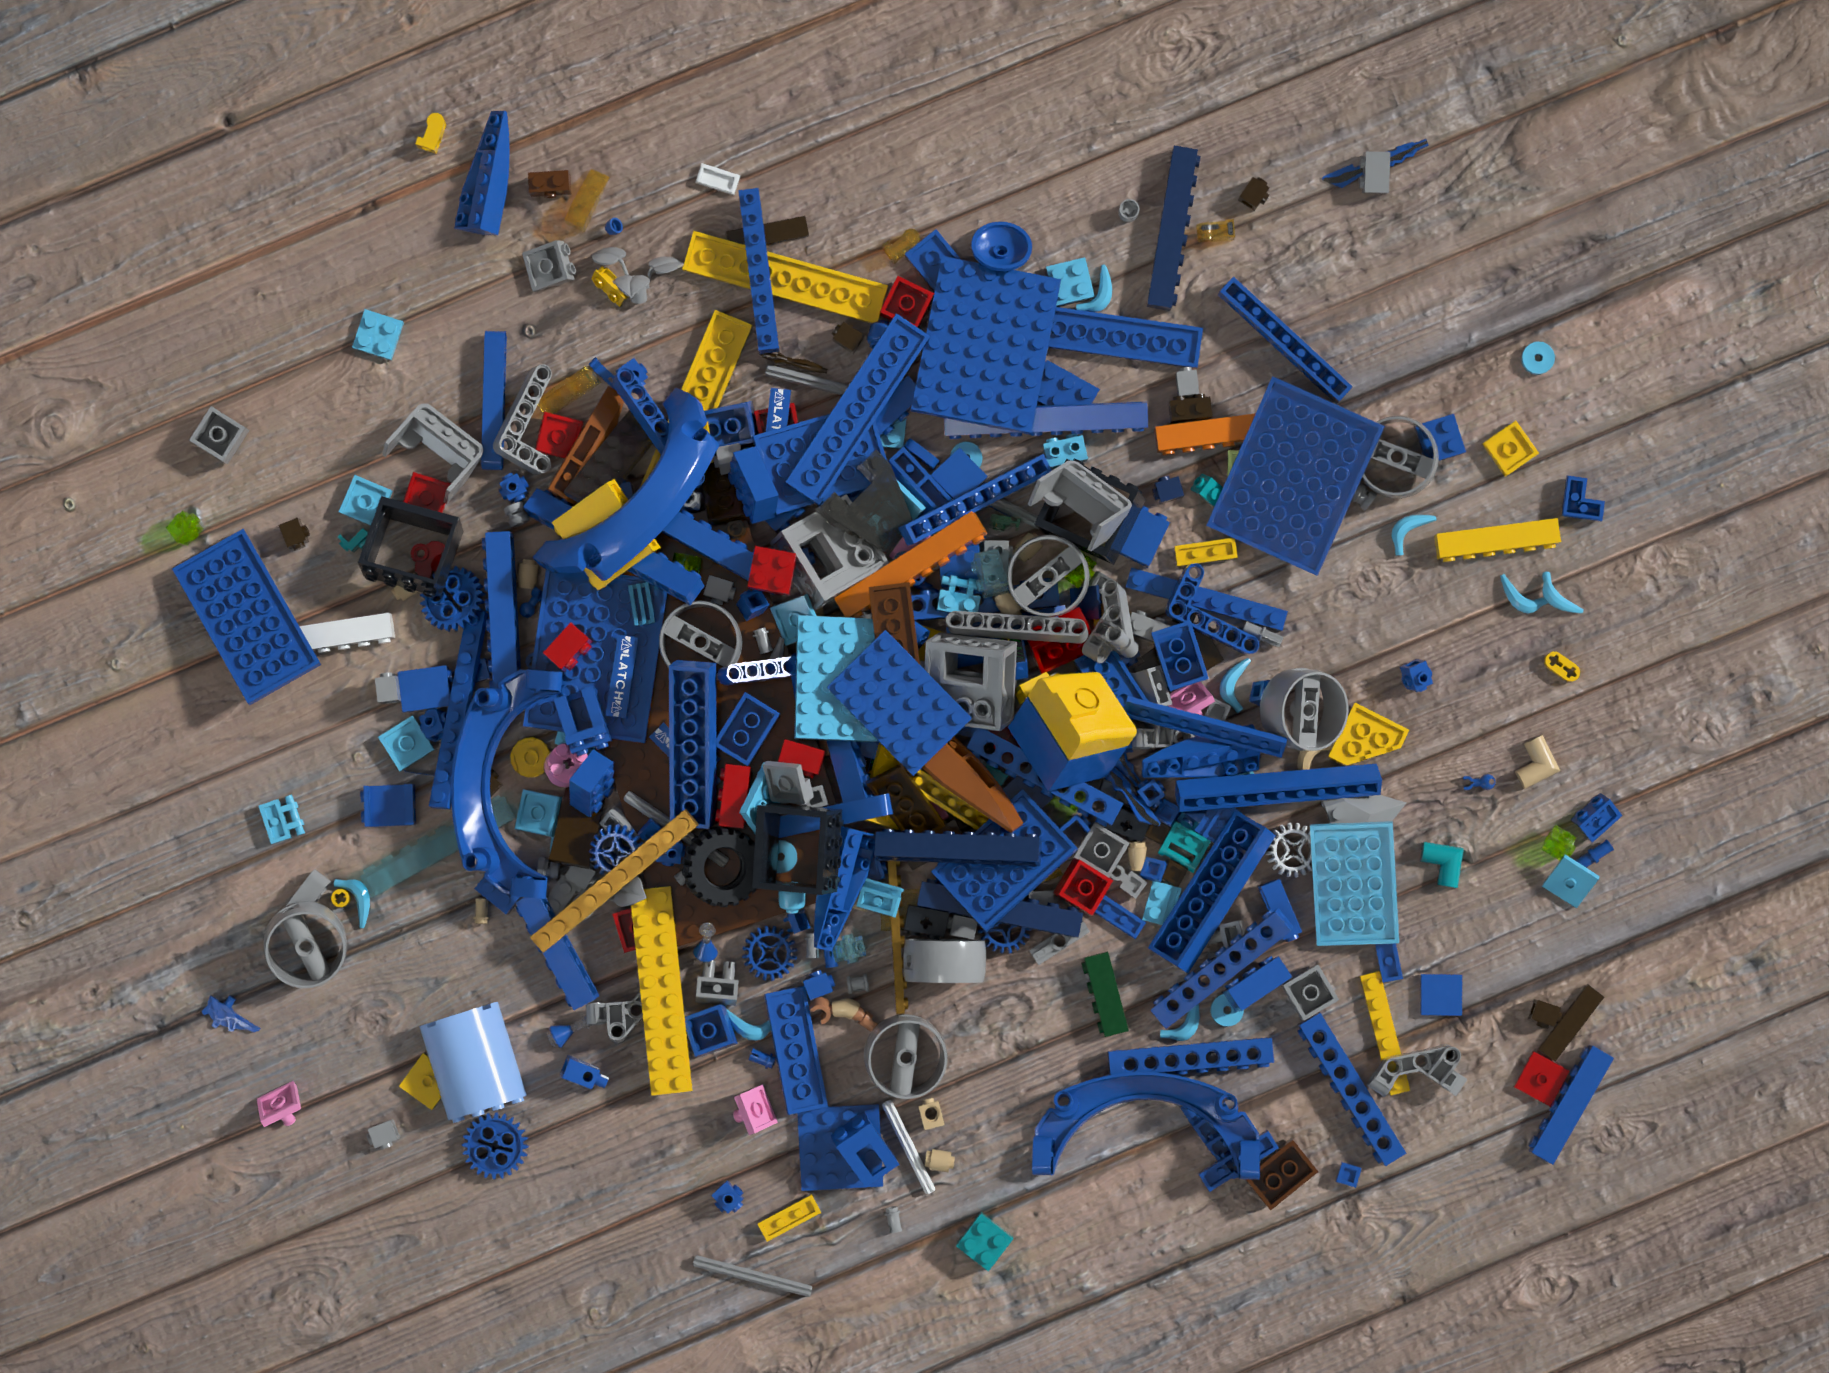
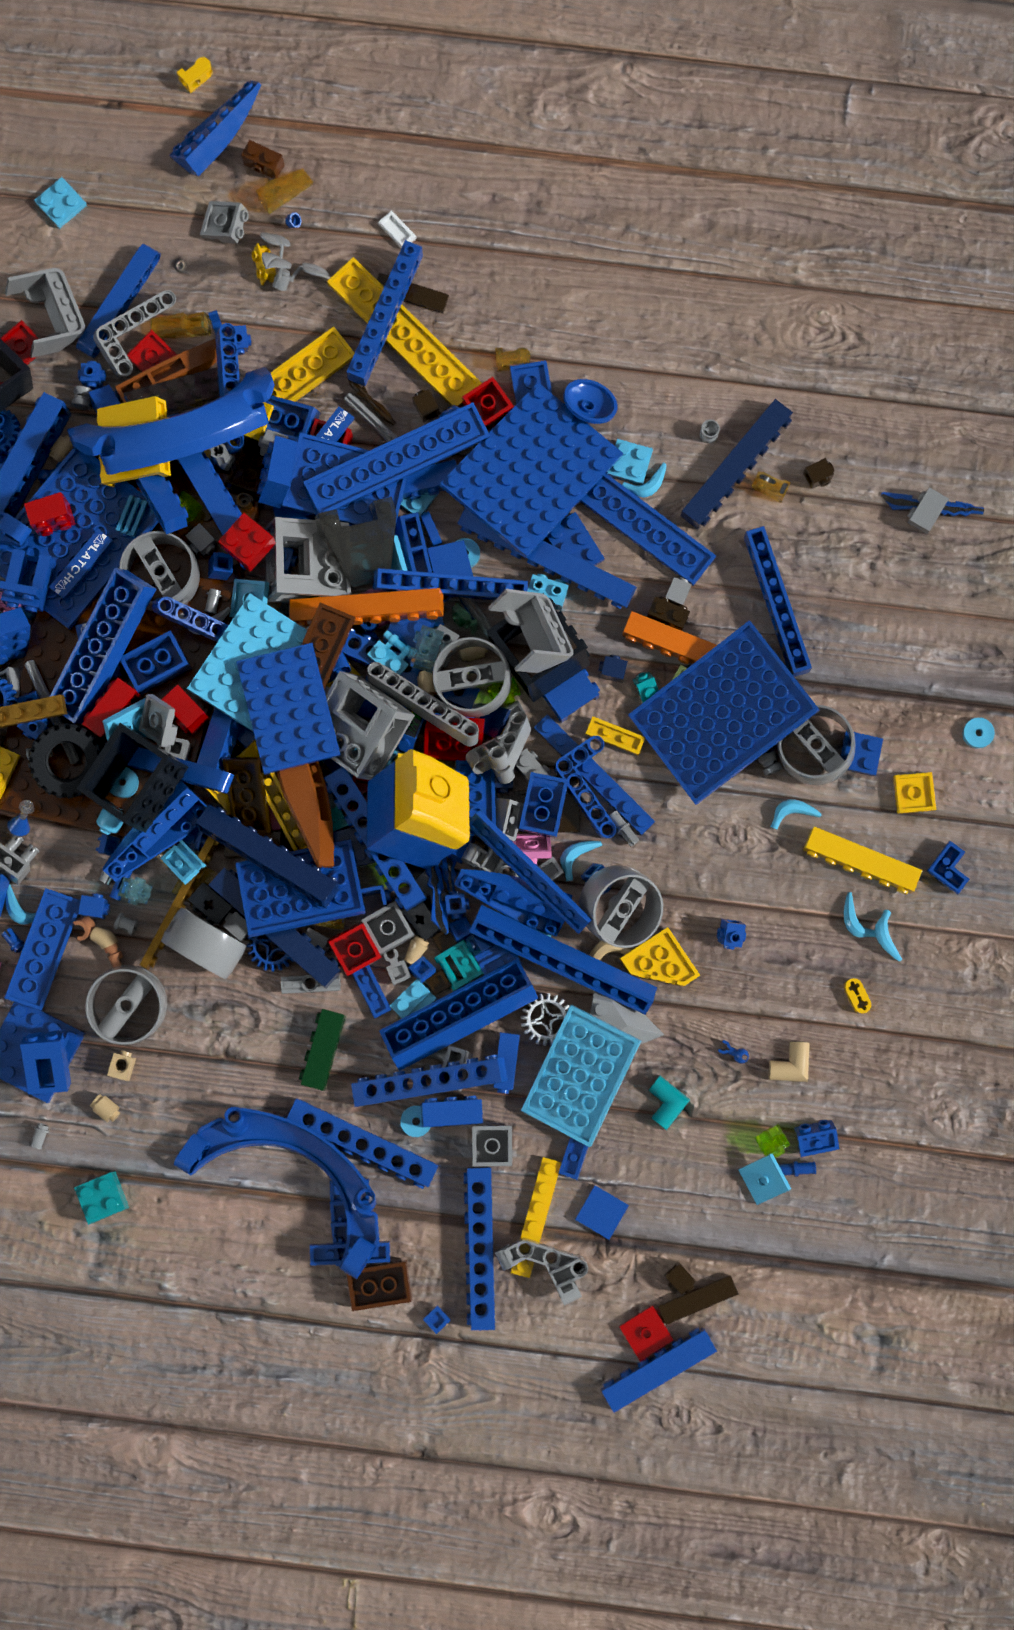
camera: 30 degrees right, 5 degrees down
(756, 965) = (78, 856): blue gear -> none
(908, 1147) = (87, 1082): white axle -> none
(1187, 1029) = (373, 1118): medium azure piece -> none

